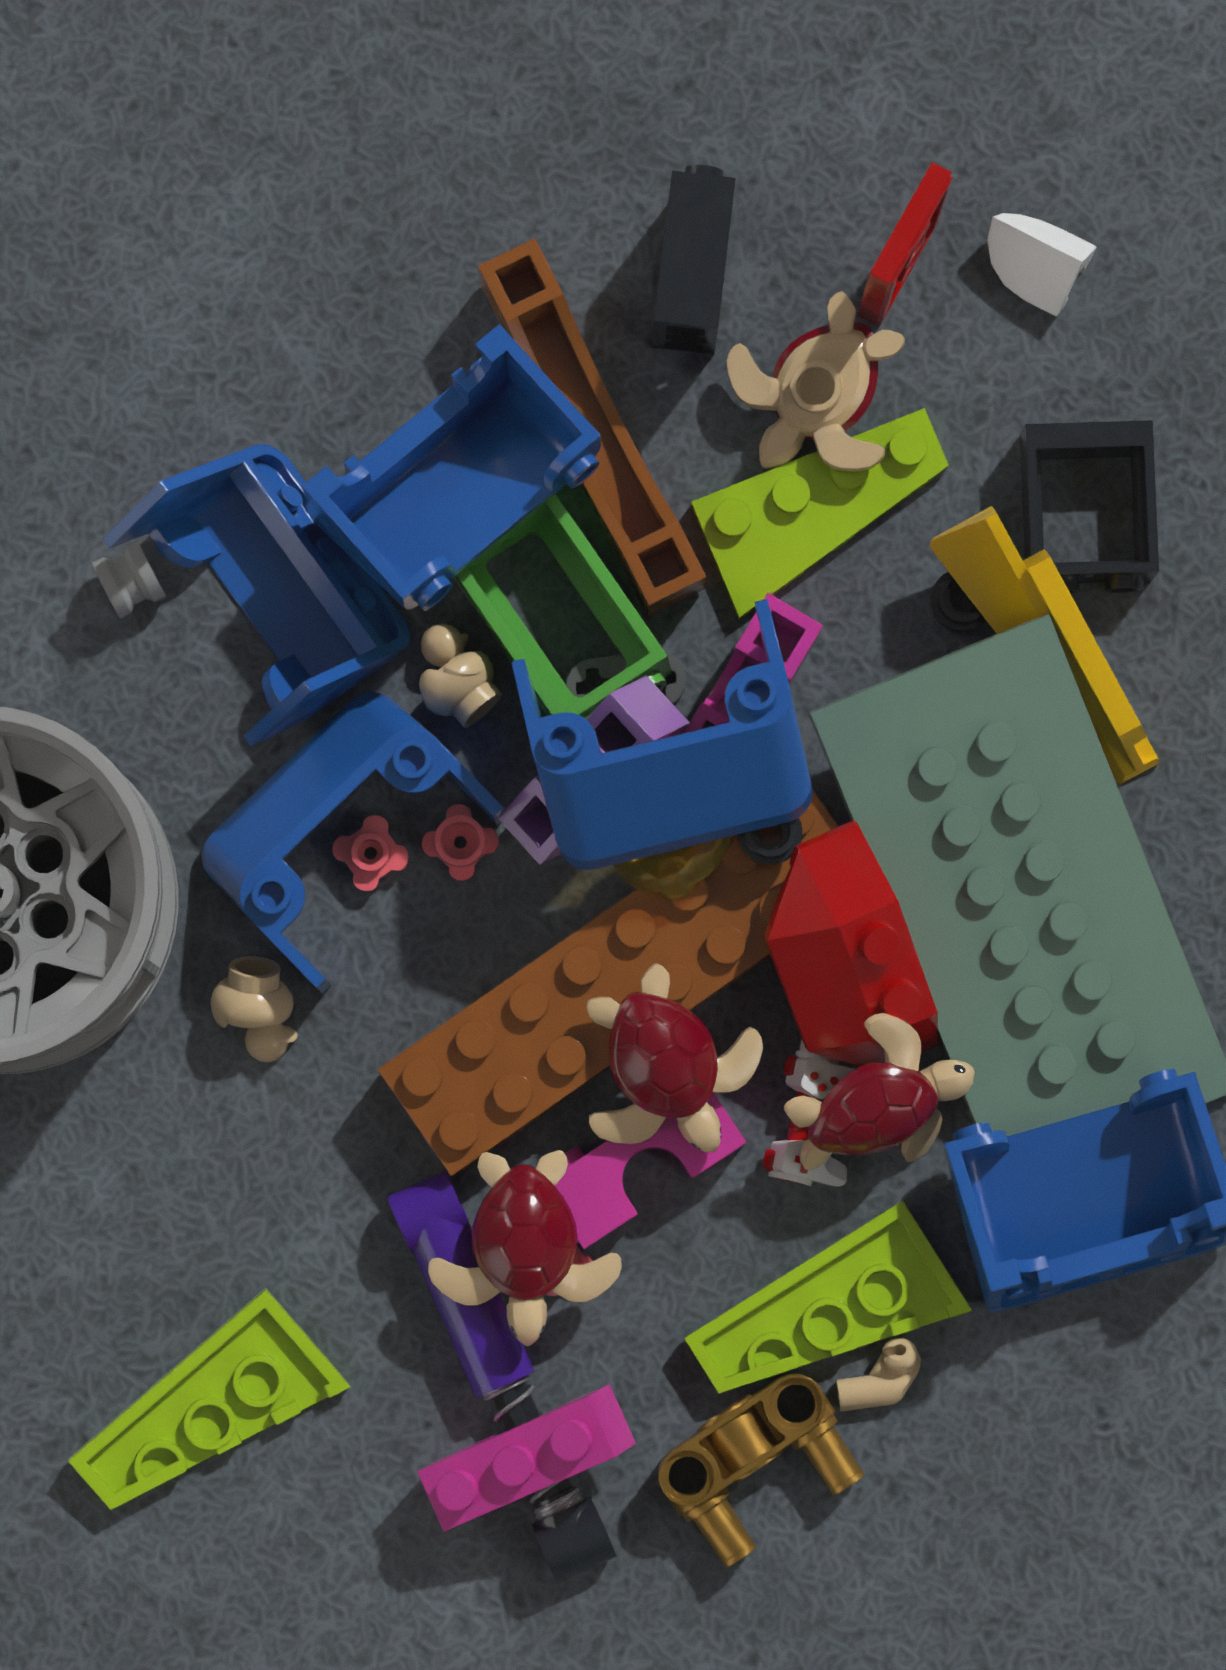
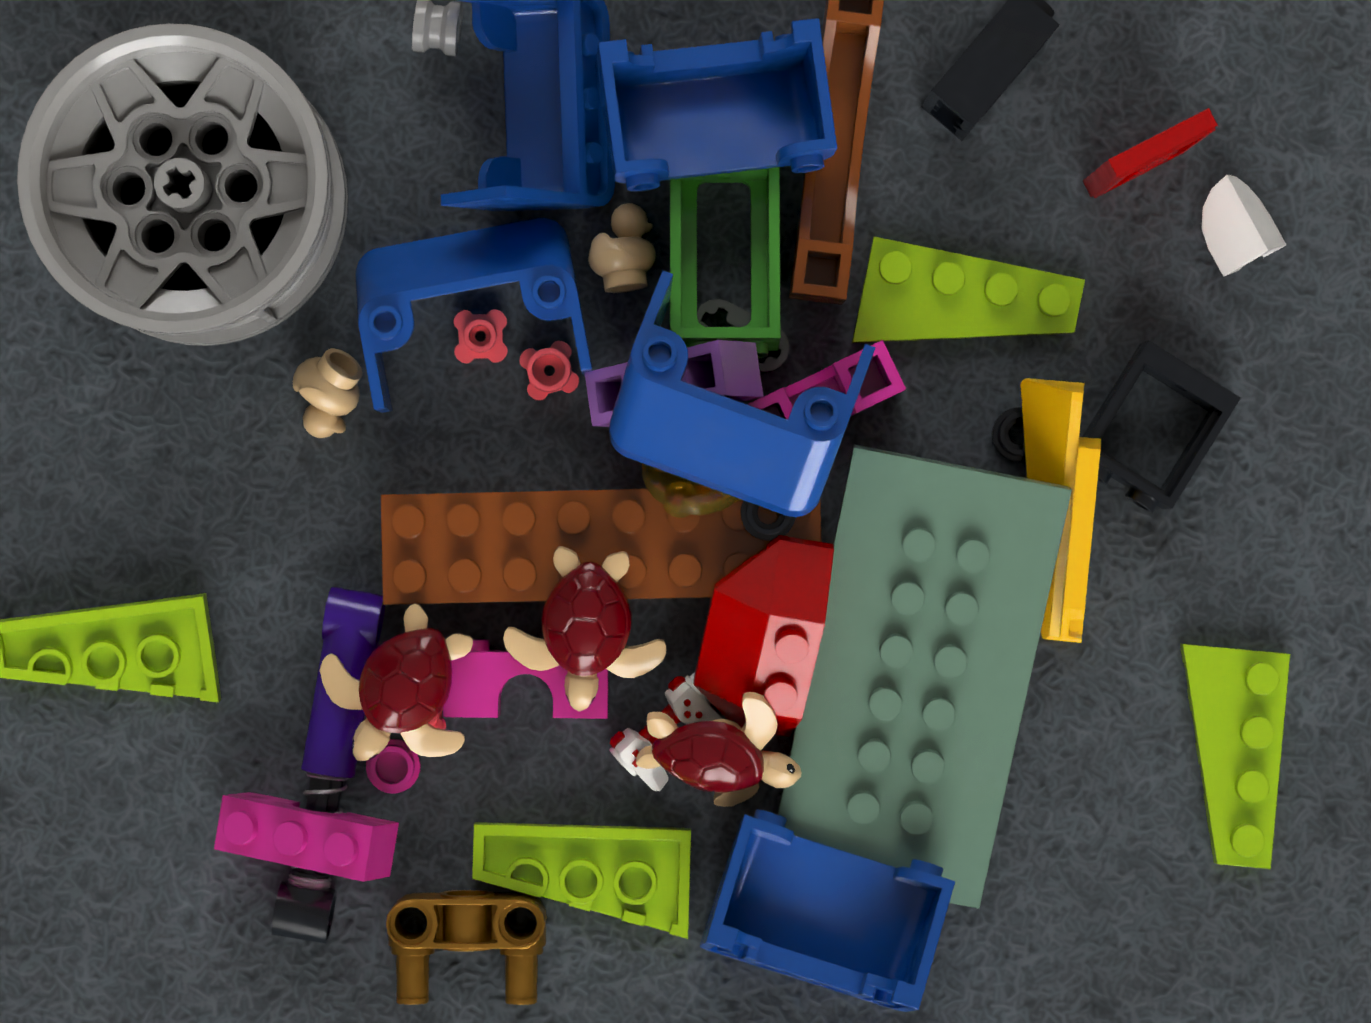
camera: 40 degrees right, 5 degrees up
(567, 1336) = (394, 768): none -> dark pink plate
(818, 389) = (1018, 216): tan animal -> none
(886, 1381) = (596, 946): tan arm -> none

